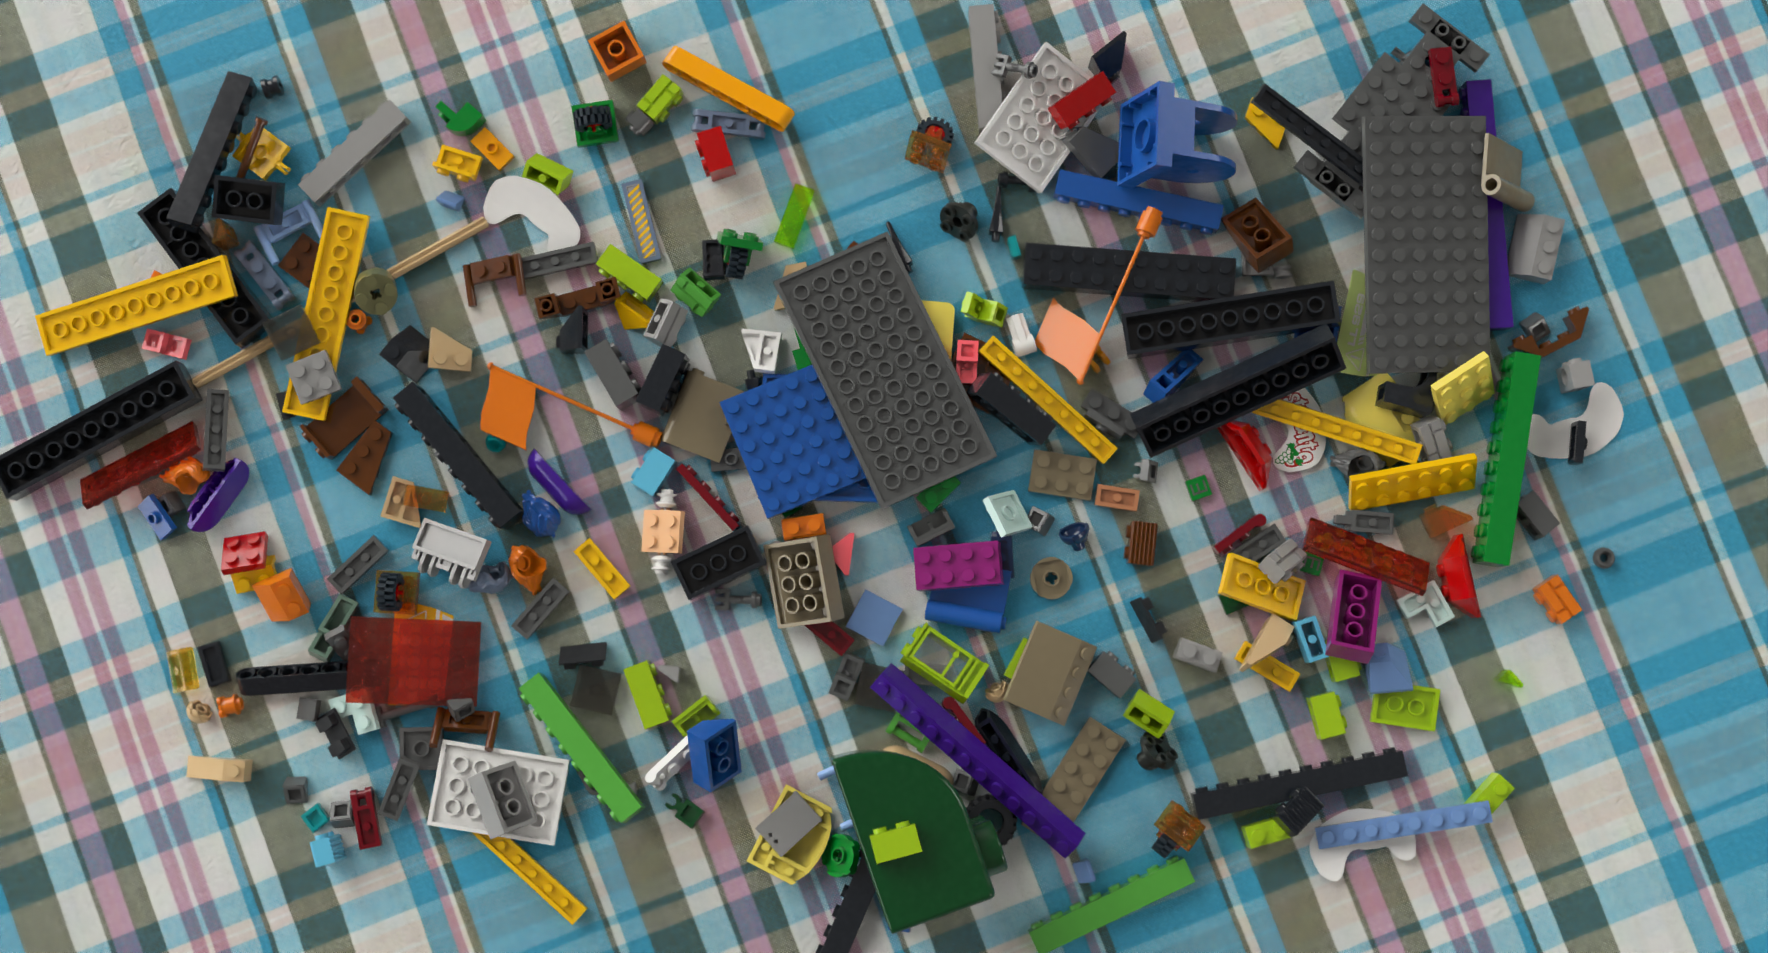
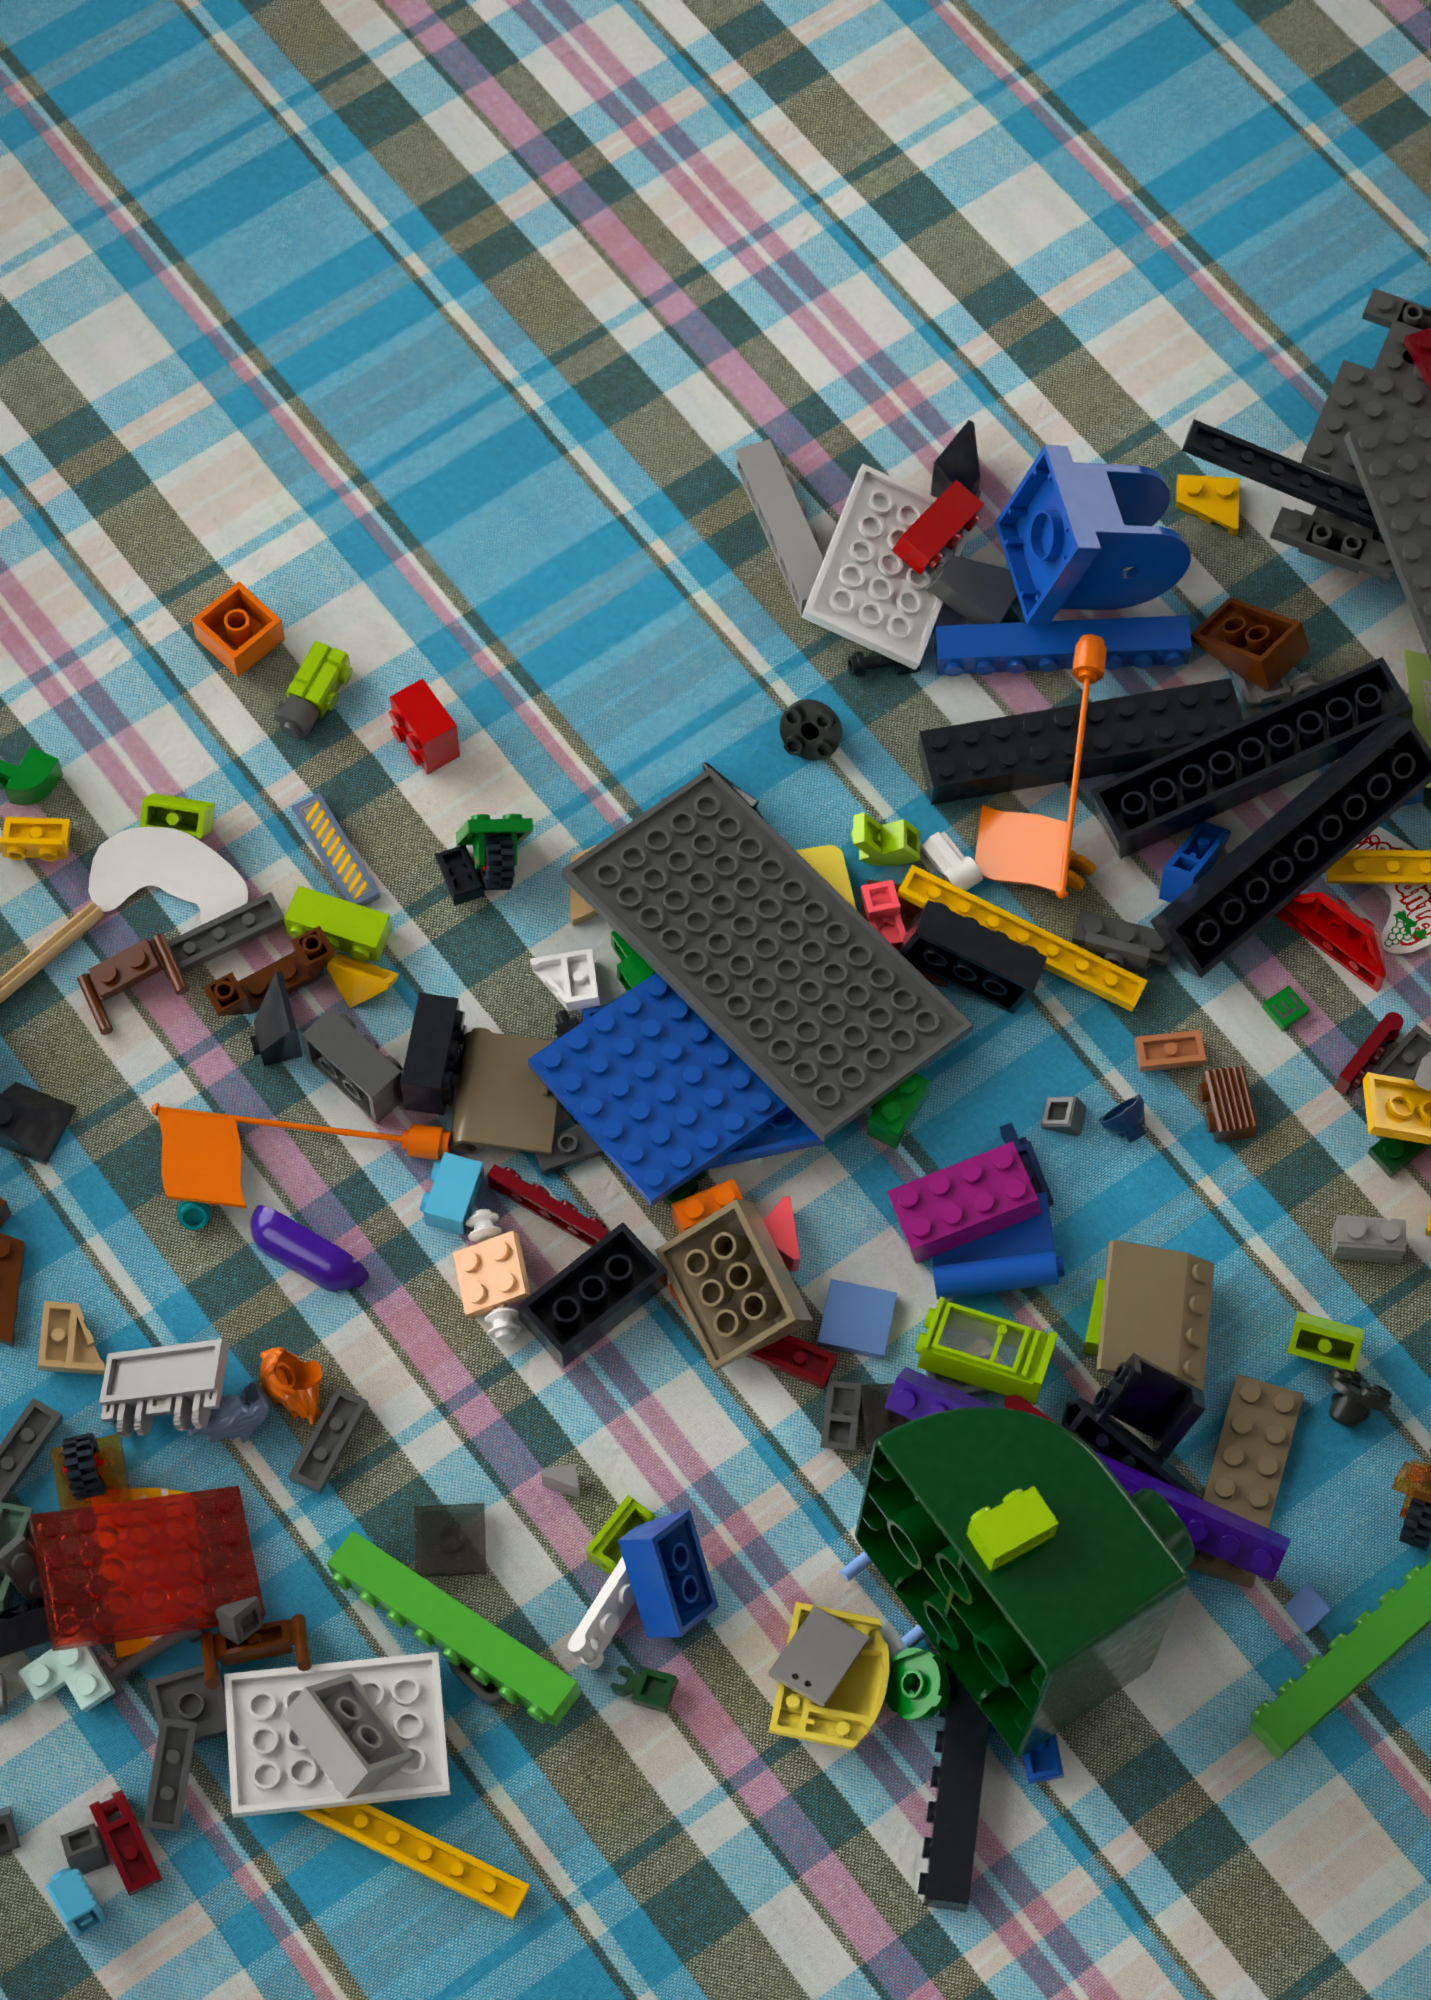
camera: 20 degrees left, 20 degrees down
(315, 817) = (40, 1866): teal tile -> none
(336, 733) = (44, 1720): black piece -> none
(425, 498) = (103, 1322): clear orange plate -> none
(448, 353) = (86, 1104): tan wing -> none
(450, 200) = (36, 895): medium blue slope -> none
(459, 455) = (144, 1242): black brick -> none
(492, 149) = (82, 808): light orange plate -> none
(540, 515) = (292, 1298): blue hair -> none
(583, 653) = (433, 1482): black piece -> none
(595, 123) = (229, 733): plate -> none
(602, 568) = (411, 1355): yellow plate -> none
(648, 694) = (536, 1523): lime brick -> none
(665, 323) = (412, 971): light grey brick -> none
(695, 292) = (446, 923): bright green brick -> none
(728, 88) = (417, 639): light orange beam -> none
(731, 123) = (444, 683): sand blue plate -> none
(755, 599) = (620, 1351): dark grey hinge -> none
(794, 216) = (563, 789): clear neon green plate -> none
(930, 144) = (737, 643): clear orange plate -> none
(931, 527) = (905, 1163): dark grey hinge -> none
(996, 226) = (866, 723): black piece -> none
(996, 692) = (1083, 1376): tan plate -> none
(1007, 513) = (1013, 1108): light aqua plate -> none
(1013, 248) = (902, 749): teal tile -> none
(1029, 69) = (811, 507): dark grey hinge -> none
(1032, 725) = (1151, 1402): none -> black panel
(1061, 584) = (1107, 1208): dark tan plate -> none
(1062, 475) = (1077, 1042): dark tan plate -> none
(1112, 674) = (1248, 1302): dark grey brick -> none
(1148, 470) = (1203, 1001): dark grey tile -> none
(1152, 629) = (1283, 1217): black piece -> none

